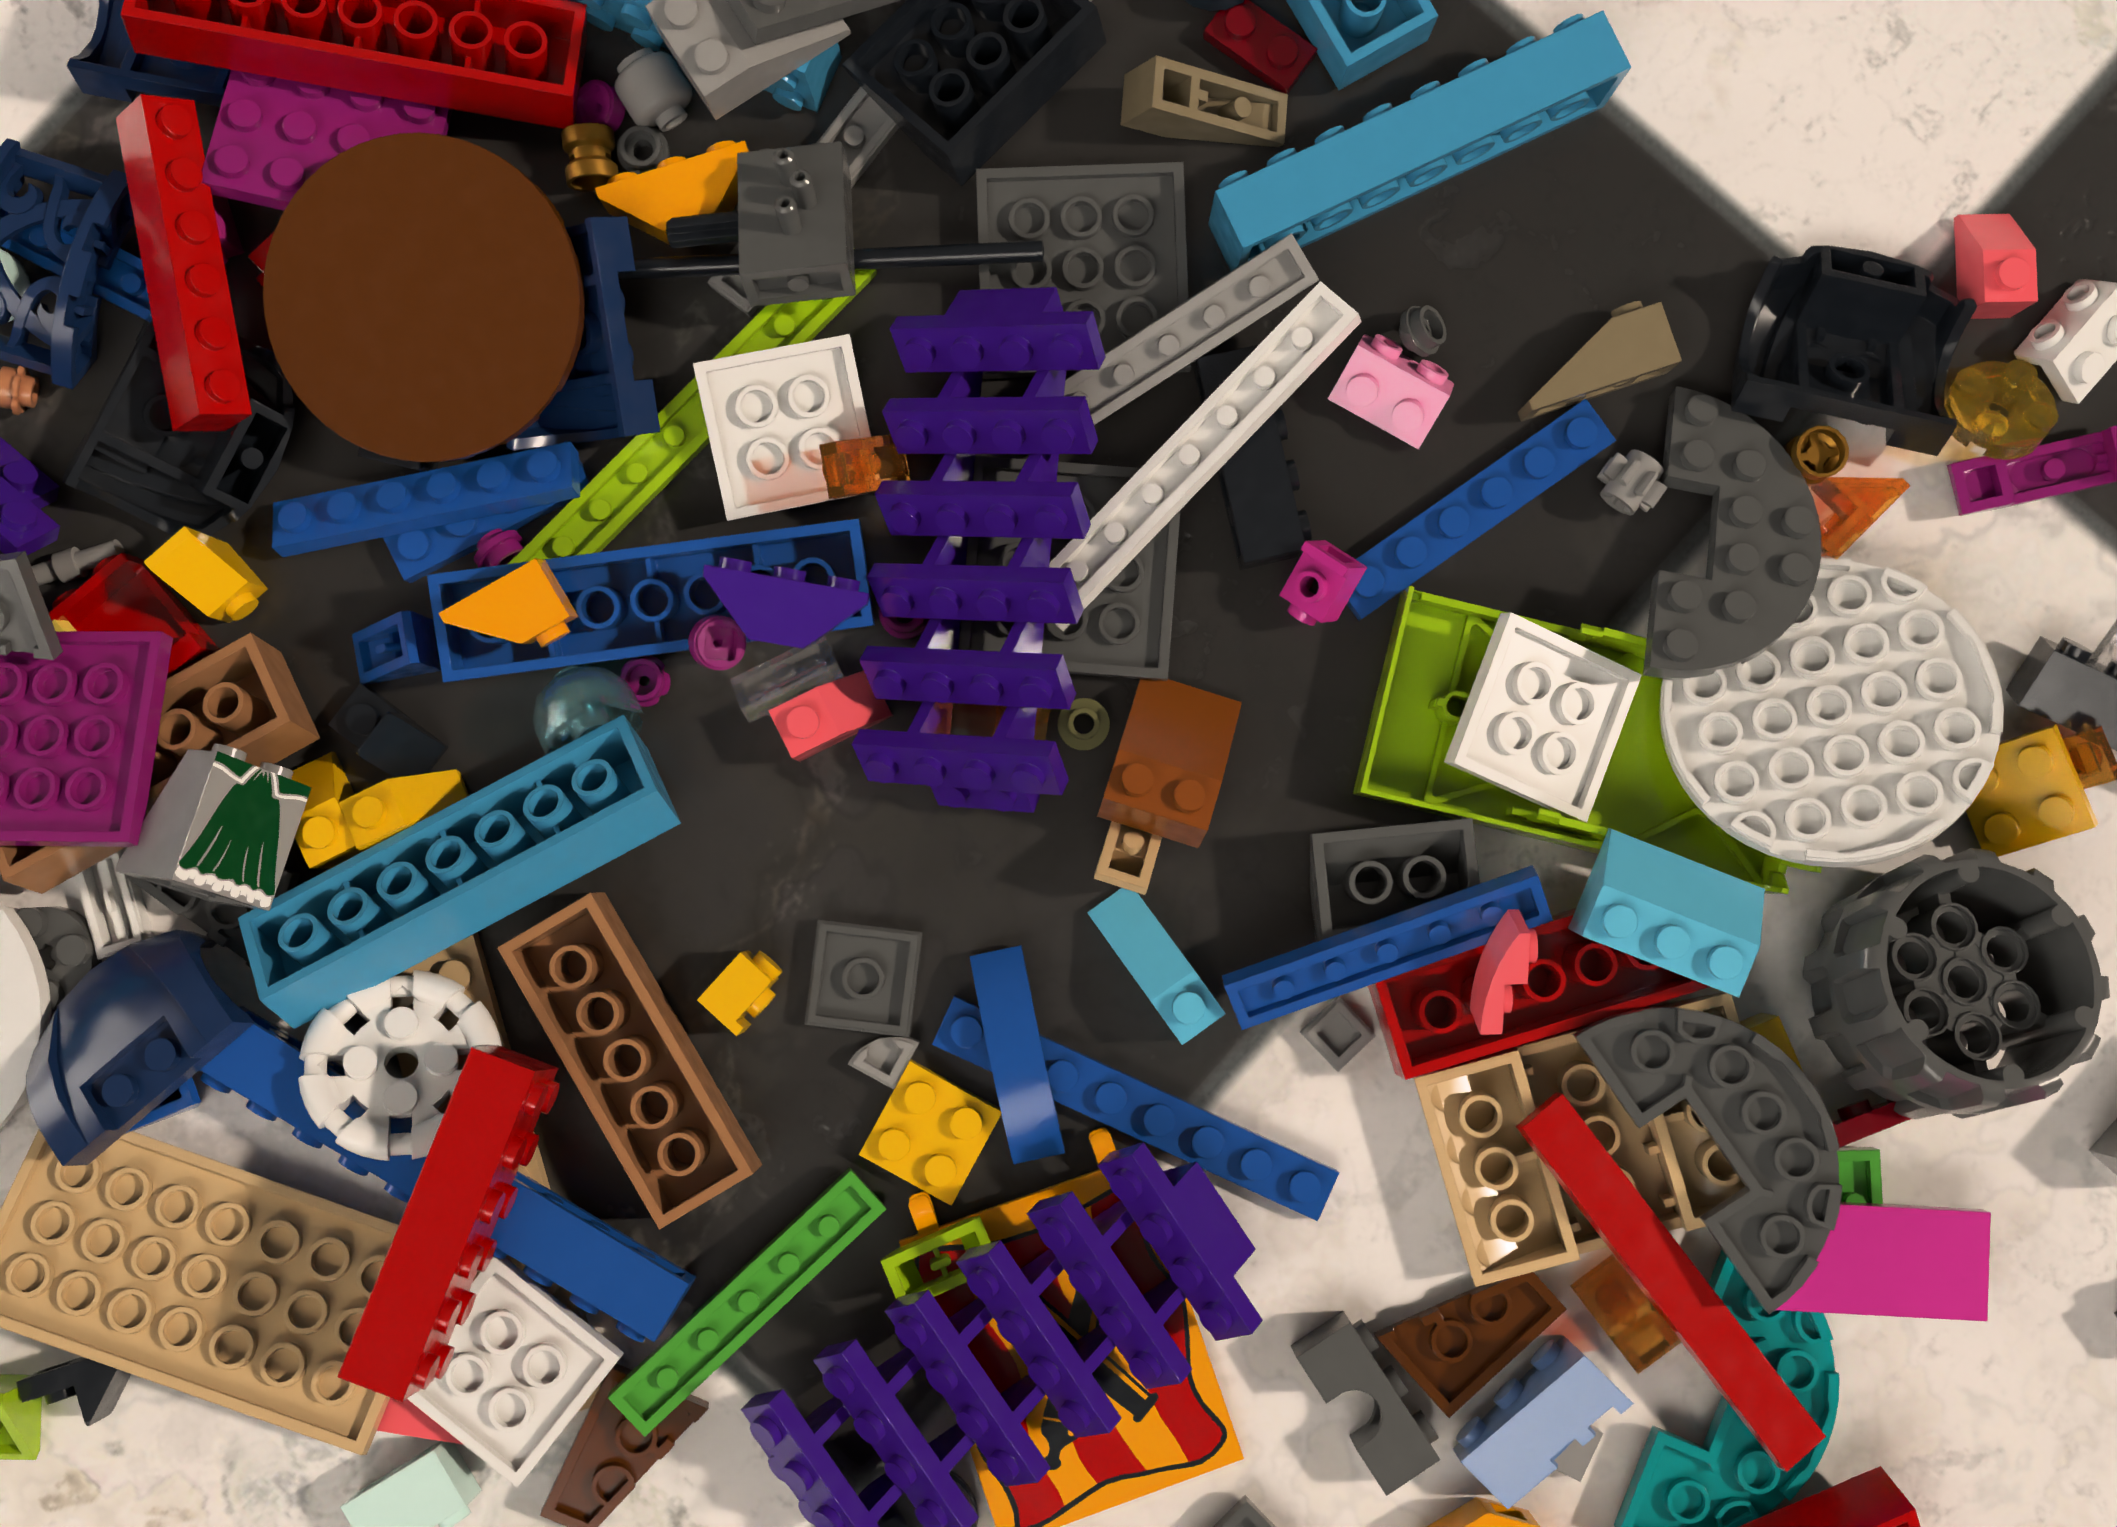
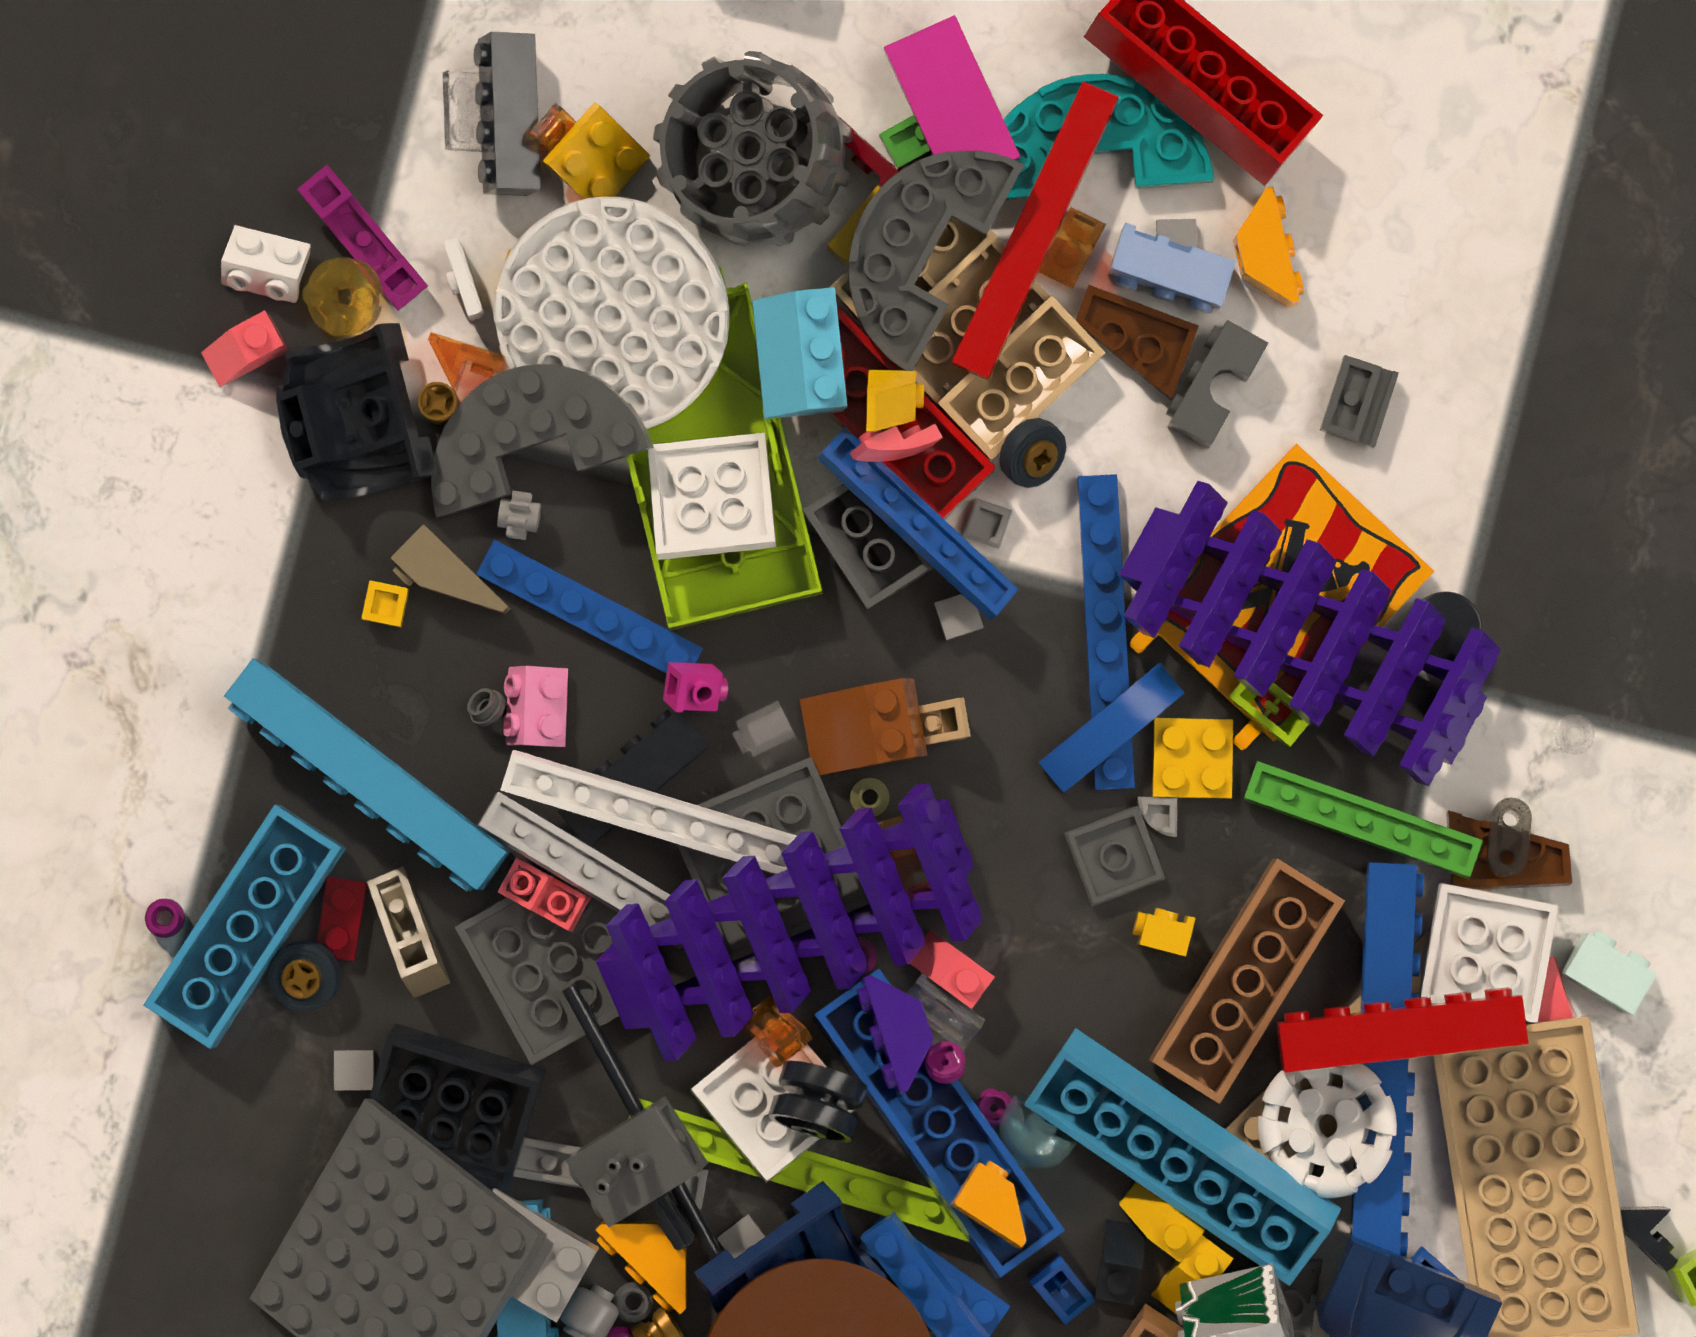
camera: 125 degrees left, 0 degrees up
(497, 548) = (957, 1251): magenta plate -> none
(628, 1472) = (1507, 838): none -> clear smoke plate
(648, 313) = (741, 1236): none -> light grey tile
(746, 461) = (817, 1101): none -> black wheel
(1156, 964) = (1004, 667): medium azure slope -> none
(1167, 280) = (544, 894): none -> coral slope
(1227, 639) = (763, 730): none -> clear brick
(1243, 940) = (958, 616): none -> light grey tile
(1397, 1133) = (1032, 452): none -> black wheel
(1560, 996) = (892, 398): none -> yellow slope
(1604, 275) = (385, 604): none -> yellow plate
(1948, 559) = (461, 279): none -> white plate

